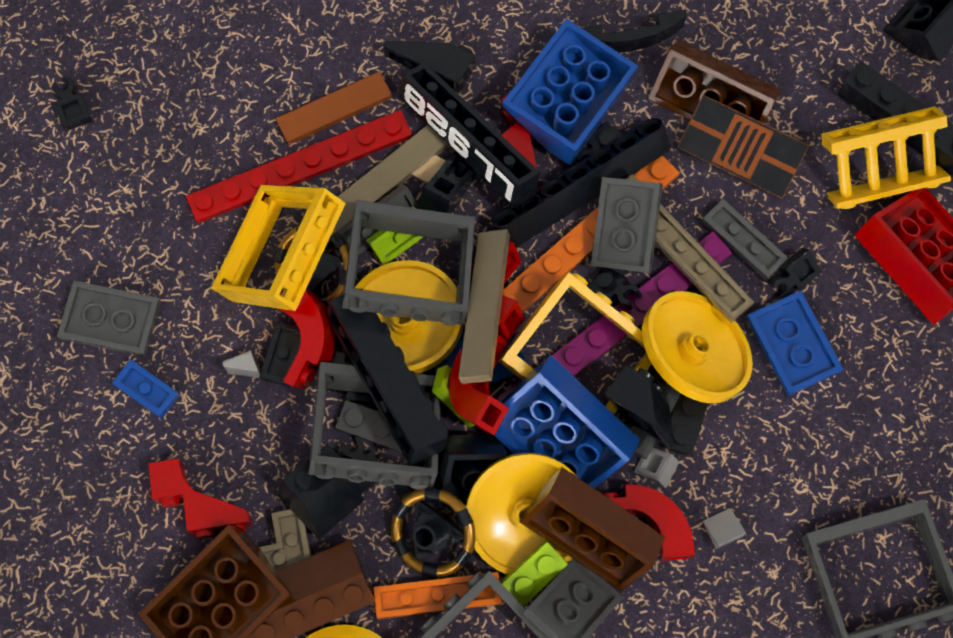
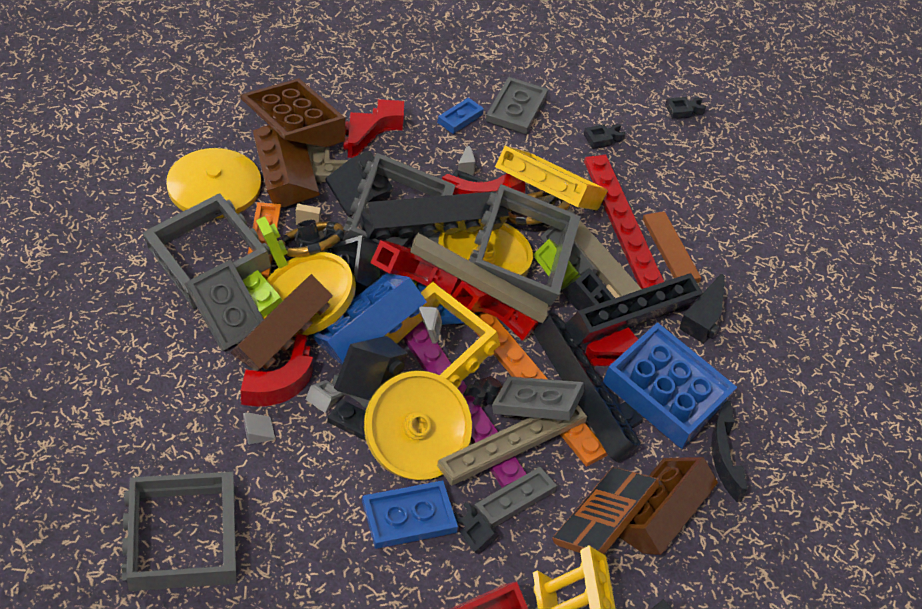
camera: 90 degrees right, 25 degrees down
(149, 204) = (602, 136): none -> black plate
(385, 547) = (306, 212): none -> tan tile
(473, 567) = (276, 247): none -> lime plate
(568, 348) = (432, 322): none -> light grey slope

